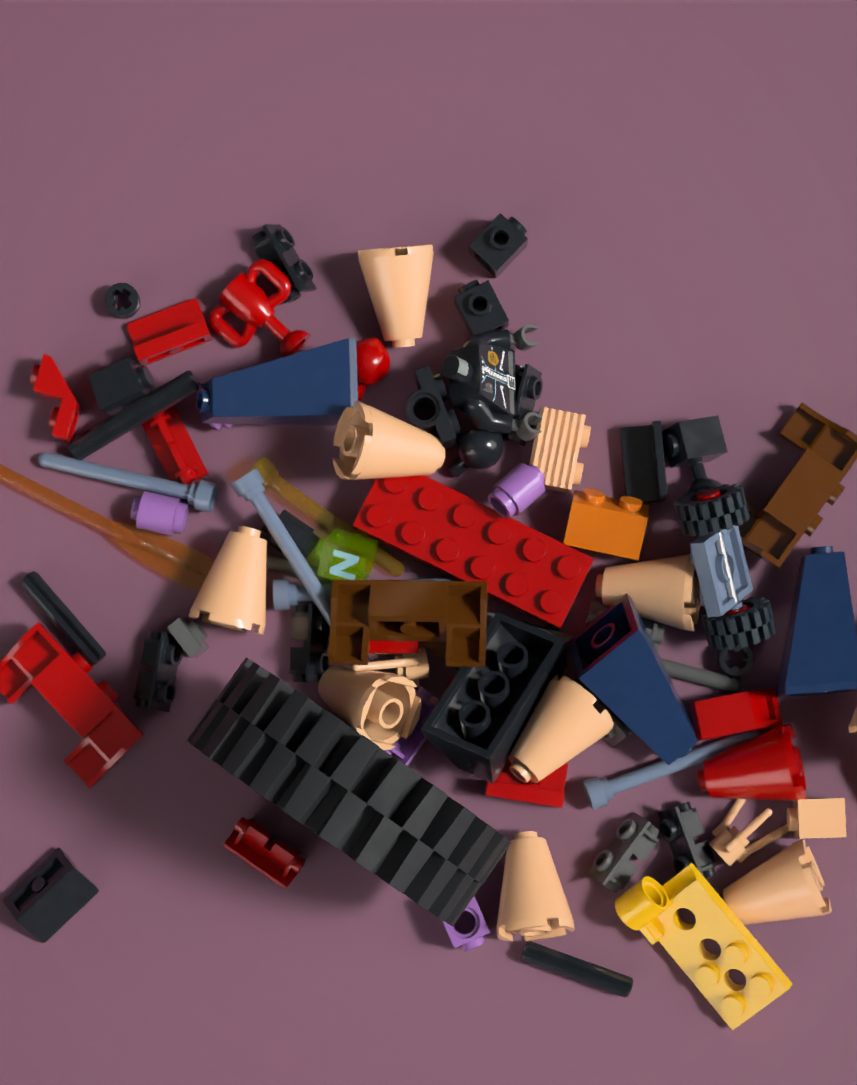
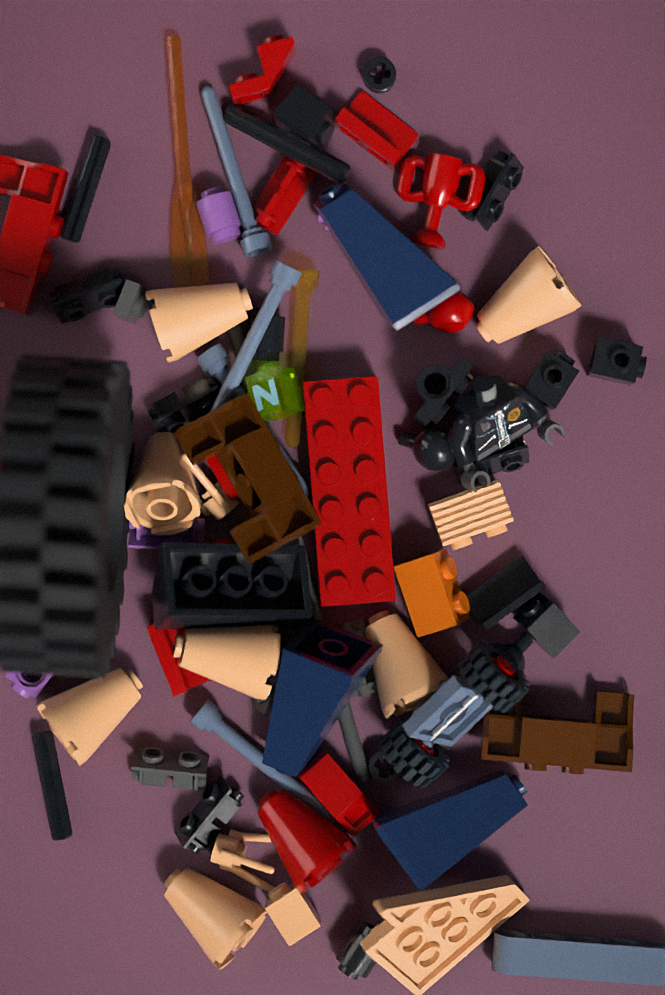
camera: 55 degrees right, 5 degrees up
(383, 446) = (381, 368): light nougat cone -> none
(517, 490) = (414, 502): medium lavender brick -> none
(655, 913) = (133, 825): yellow hinge -> none

